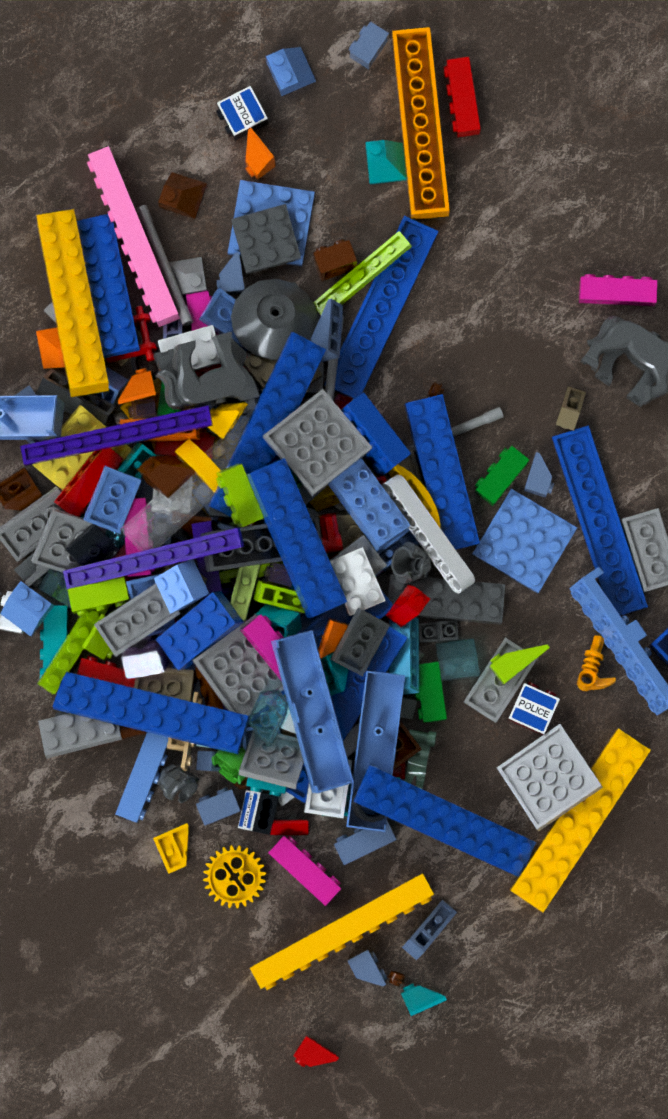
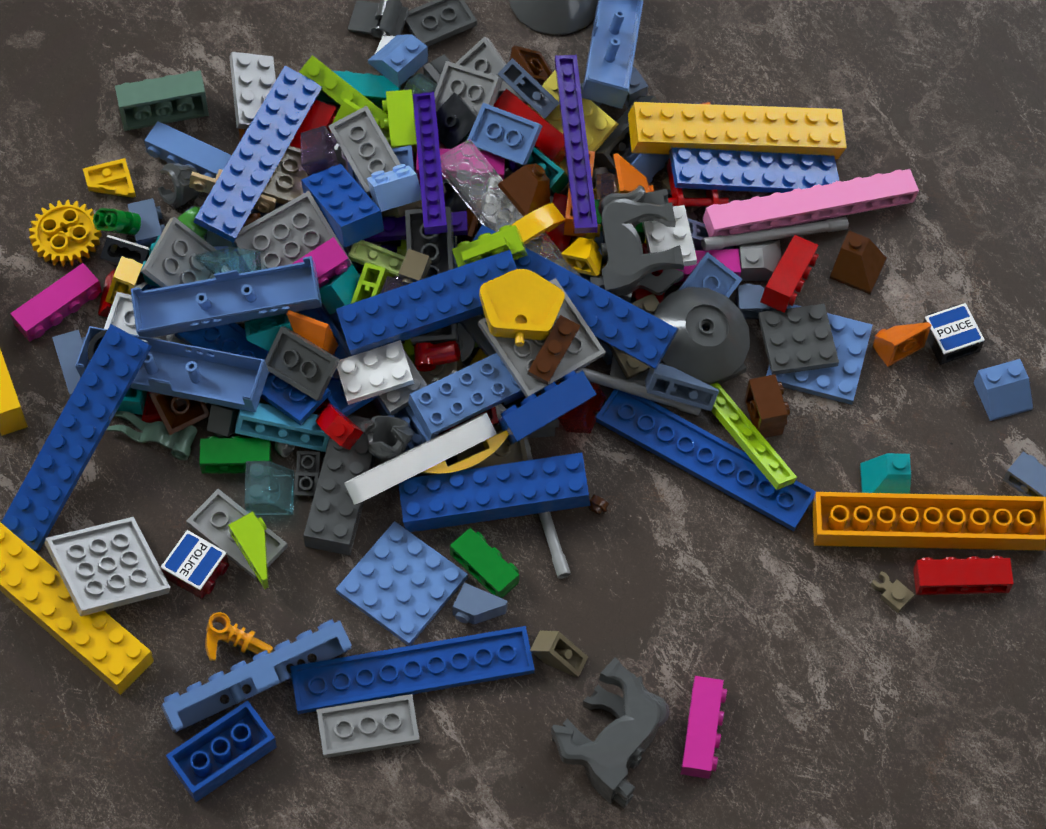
camera: 90 degrees right, 20 degrees down
(53, 487) = (528, 88): none -> sand blue slope
(92, 814) = (162, 100): none -> sand green brick
(206, 249) = (789, 274): none -> red brick
(225, 829) = (117, 221): none -> green brick
(252, 501) = (485, 250): none -> lime plate
(266, 555) = (414, 267): none -> dark tan brick
(291, 808) = (124, 278): none -> yellow slope
(298, 459) = (520, 305): none -> yellow animal
(330, 430) = (553, 350): none -> reddish brown plate
(482, 150) = (894, 594): none -> dark tan plate

